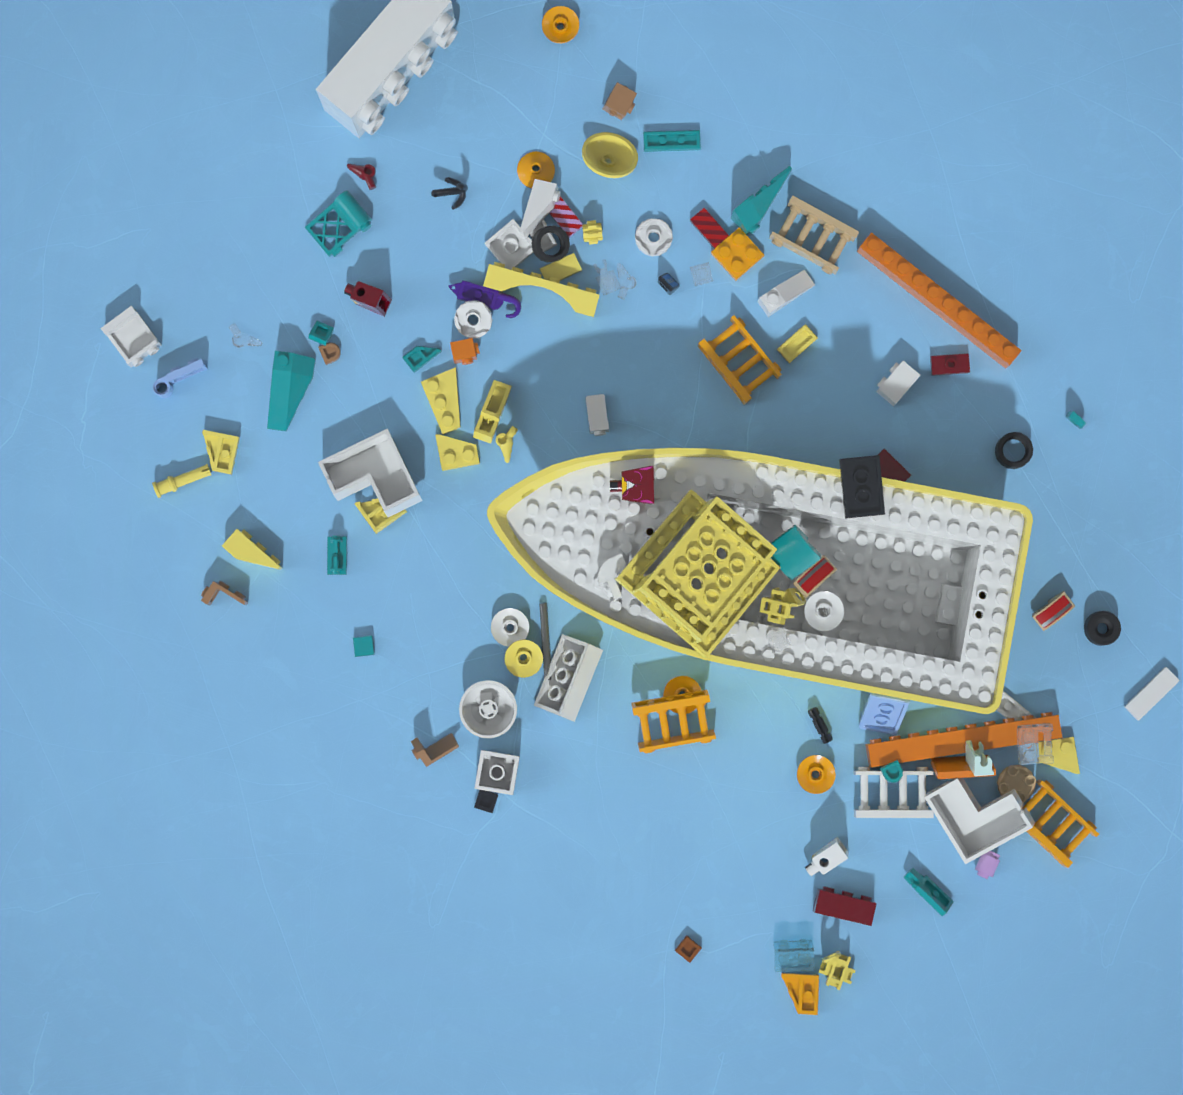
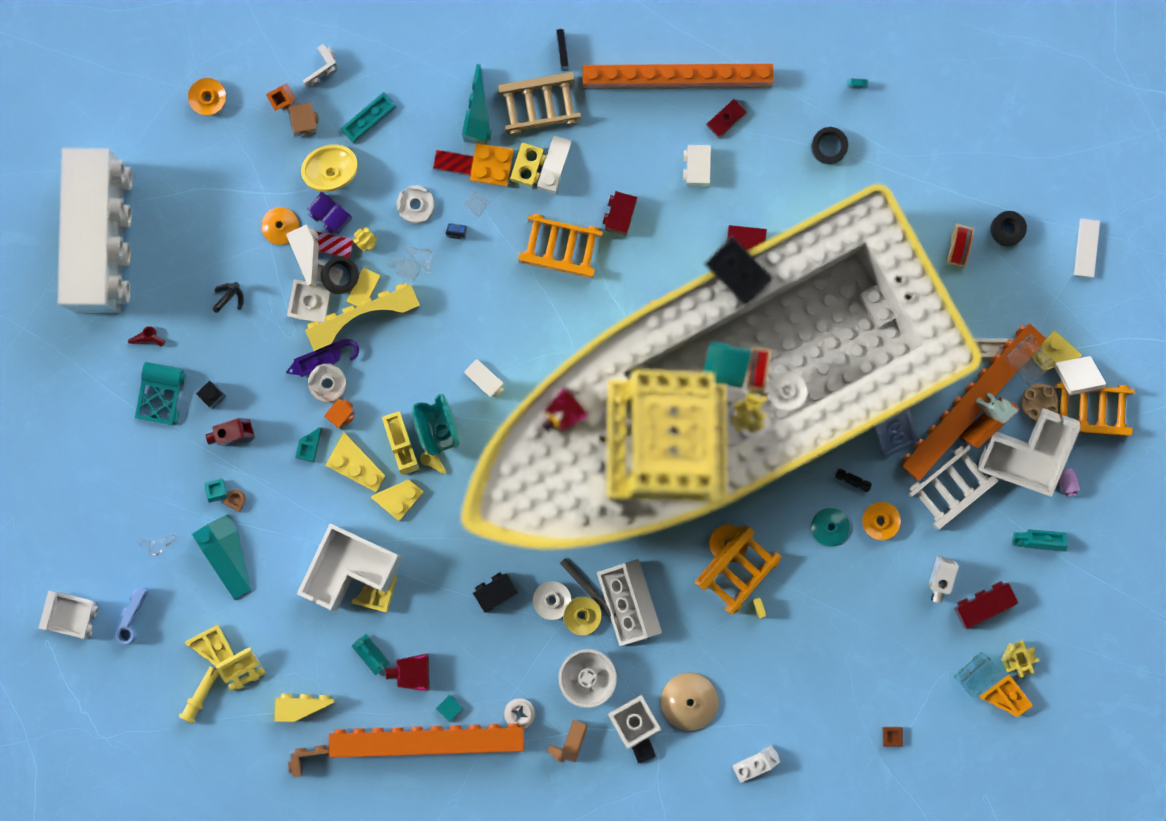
camera: 35 degrees left, 0 degrees up
(228, 480) = (239, 665): none -> light yellow plate
(325, 657) = (426, 741): none -> orange brick
(356, 594) = (411, 672): none -> dark red torso
(377, 256) = (210, 394): none -> black brick
(411, 703) = (528, 710): none -> white gear
(471, 585) = (494, 592): none -> black brick
(529, 419) = (435, 425): none -> teal animal
(565, 883) = (756, 764): none -> white bracket
(566, 787) = (686, 687): none -> tan dish
(581, 190) = (329, 213): none -> dark purple brick
(617, 71) = (281, 97): none -> orange brick
(665, 764) = (758, 605): none -> light yellow tile
(669, 78) = (328, 55): none -> white bracket
(762, 272) = (523, 164): none -> light yellow brick
(762, 747) = (820, 527): none -> teal dish
(797, 343) = (595, 197): light yellow tile -> none
(807, 371) = (620, 213): none -> dark red brick
(865, 208) = (562, 49): none -> black tile
(892, 772) = (938, 471): teal tile -> none
(1065, 788) = (1080, 375): none -> white tile

